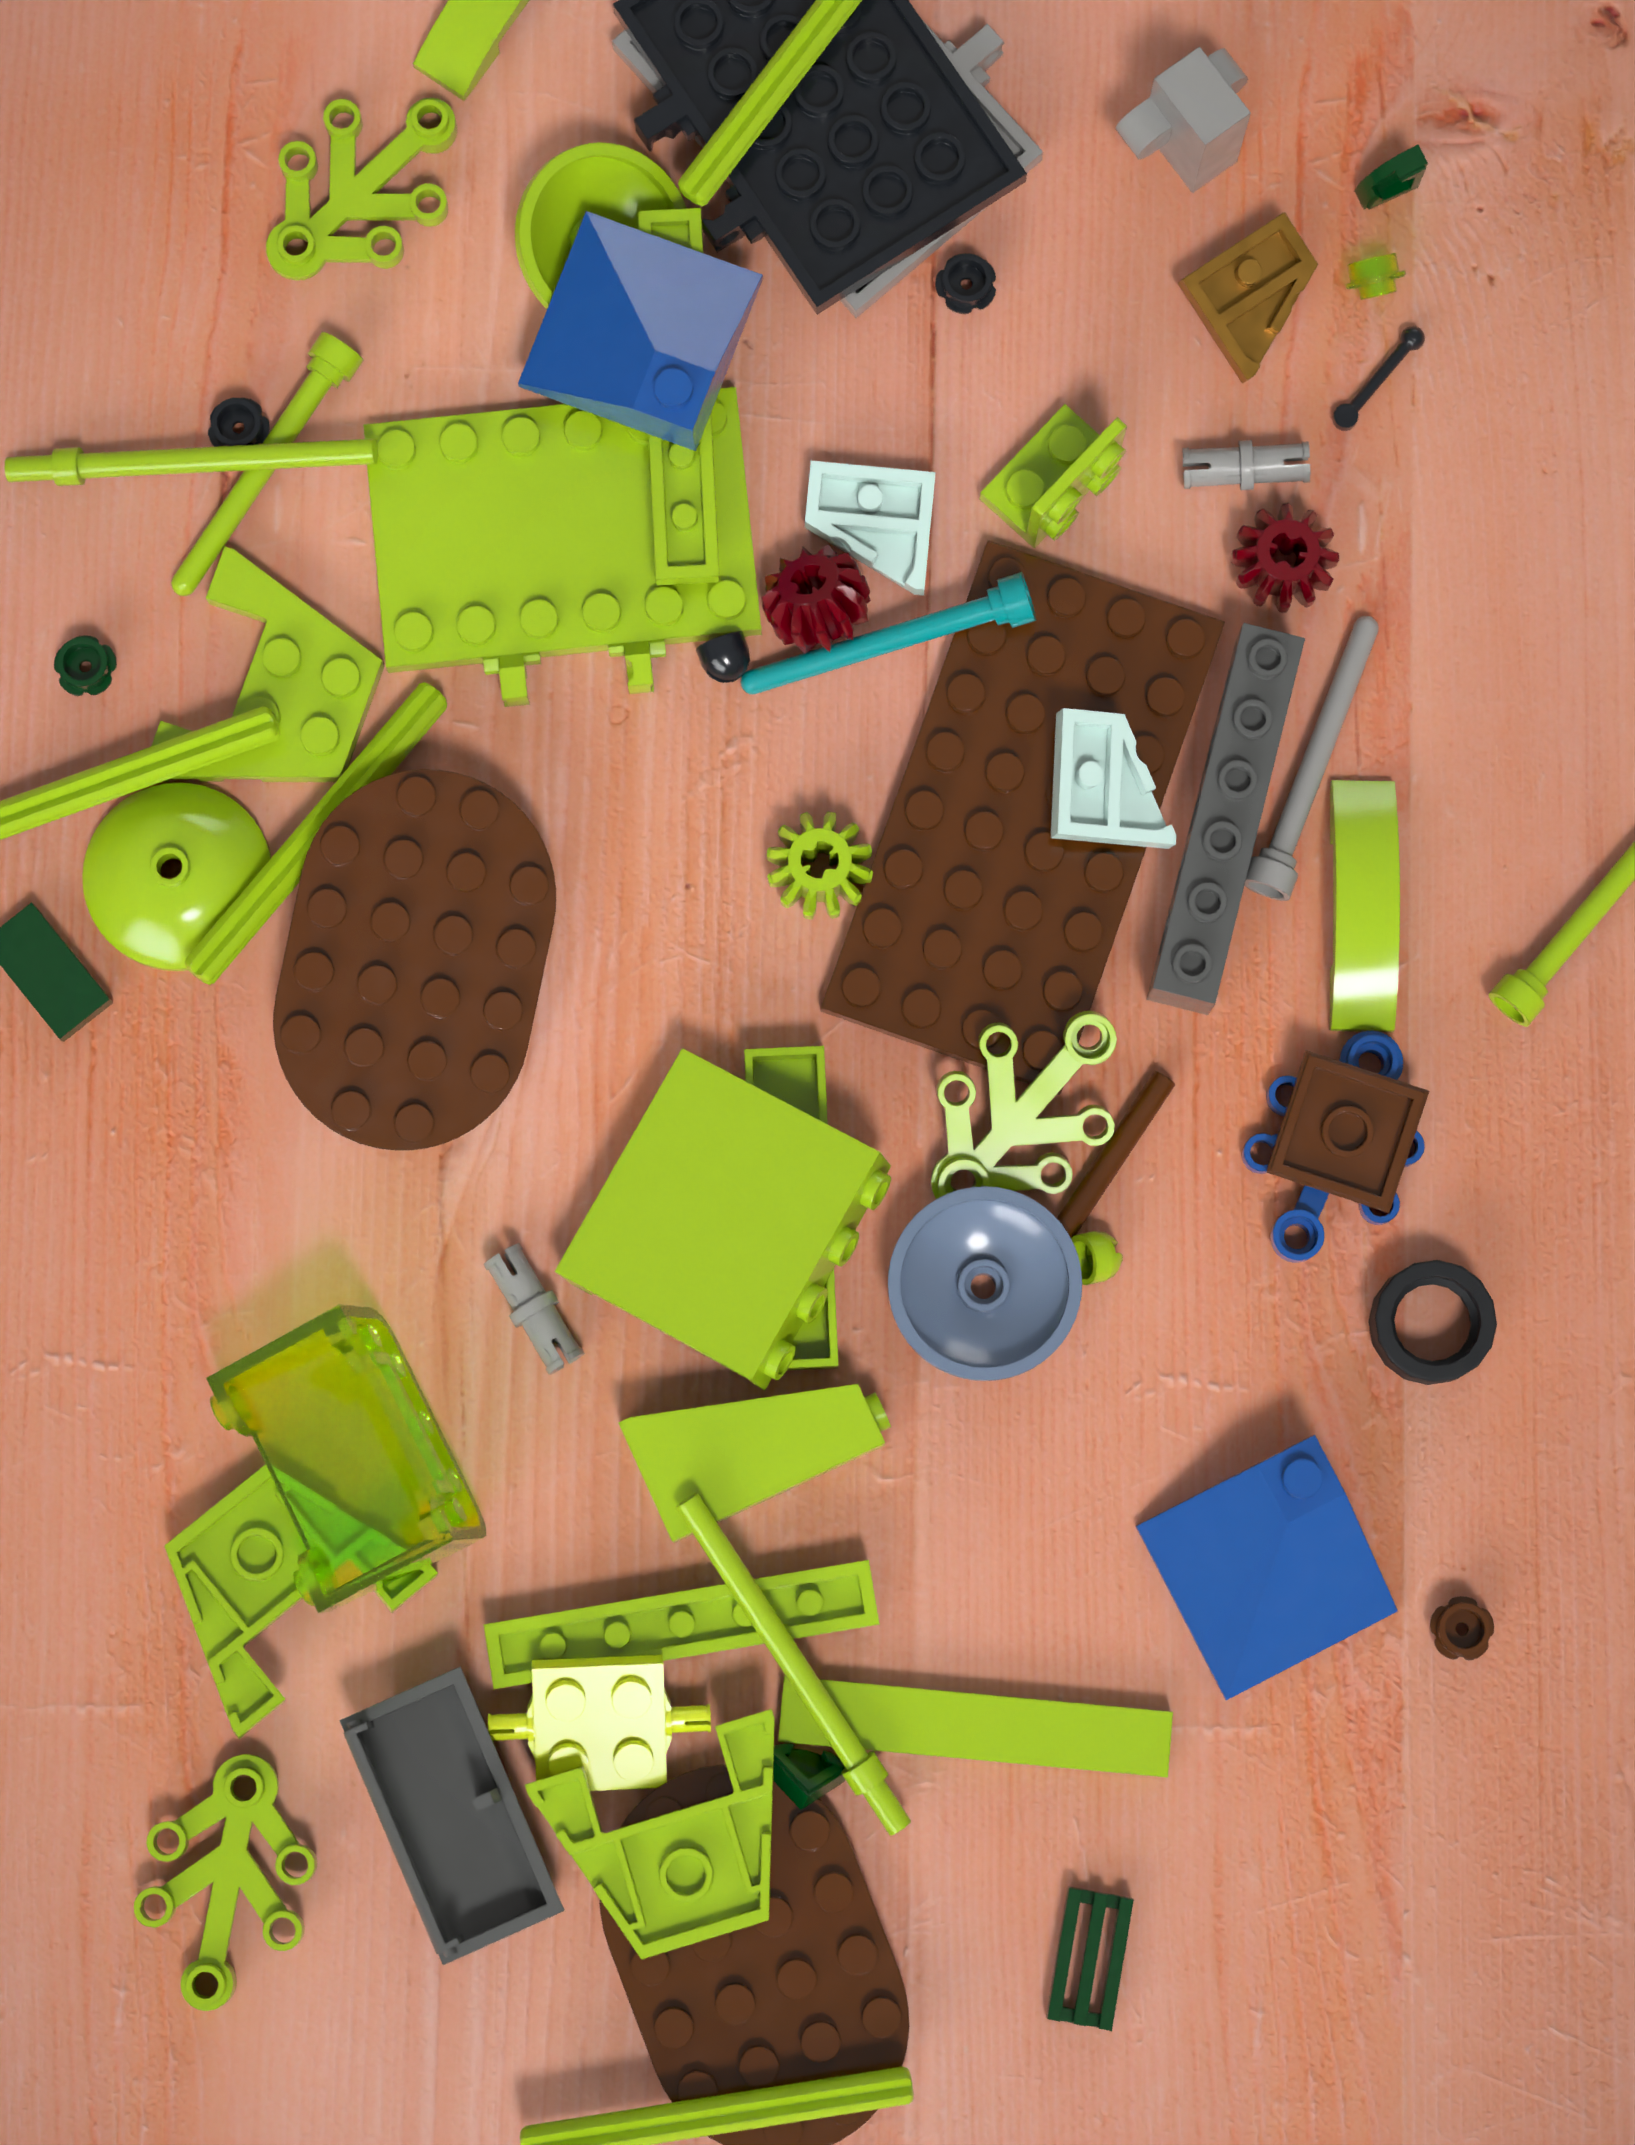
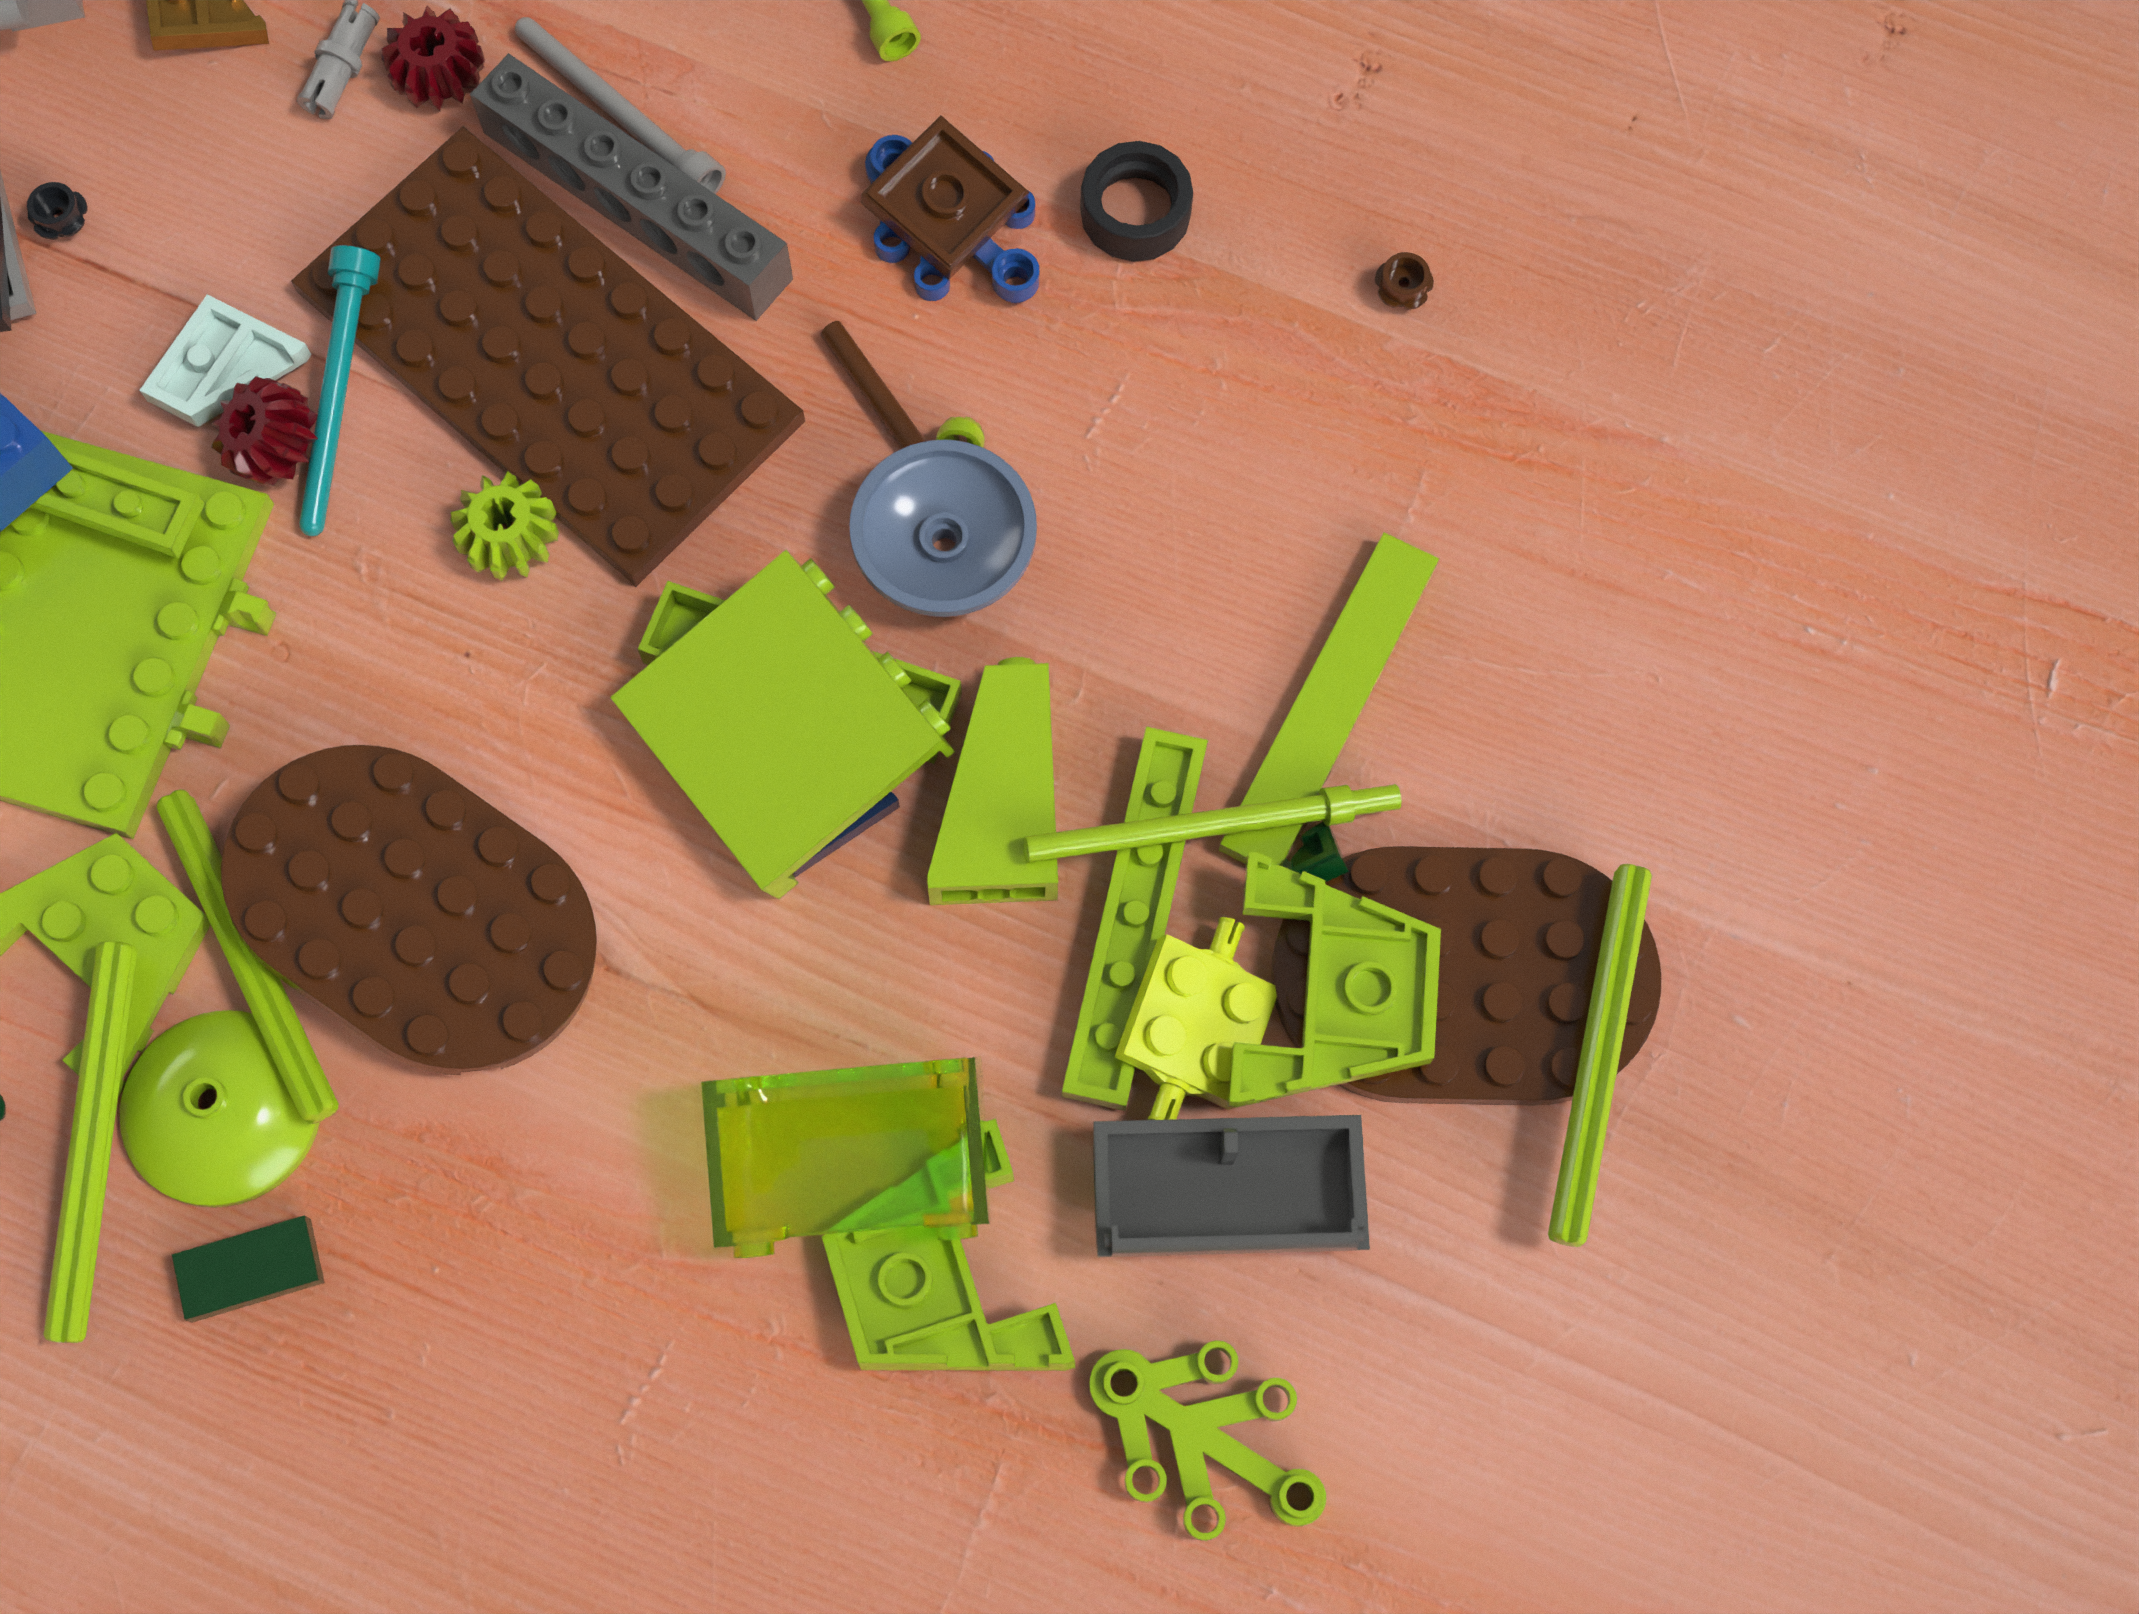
camera: 70 degrees left, 10 degrees down
(534, 1308) = (787, 935): light grey pin -> none
(725, 657) = (275, 534): black hinge -> none
(1015, 1120) = (807, 451): plant -> none
(1052, 475) = (265, 203): lime bracket -> none
(1081, 2013) = (1582, 668): dark green tile -> none
(1102, 785) = (550, 260): light aqua wing -> none
(1268, 1567) = (1286, 407): blue slope -> none
(1364, 905) = (762, 112): lime slope -> none

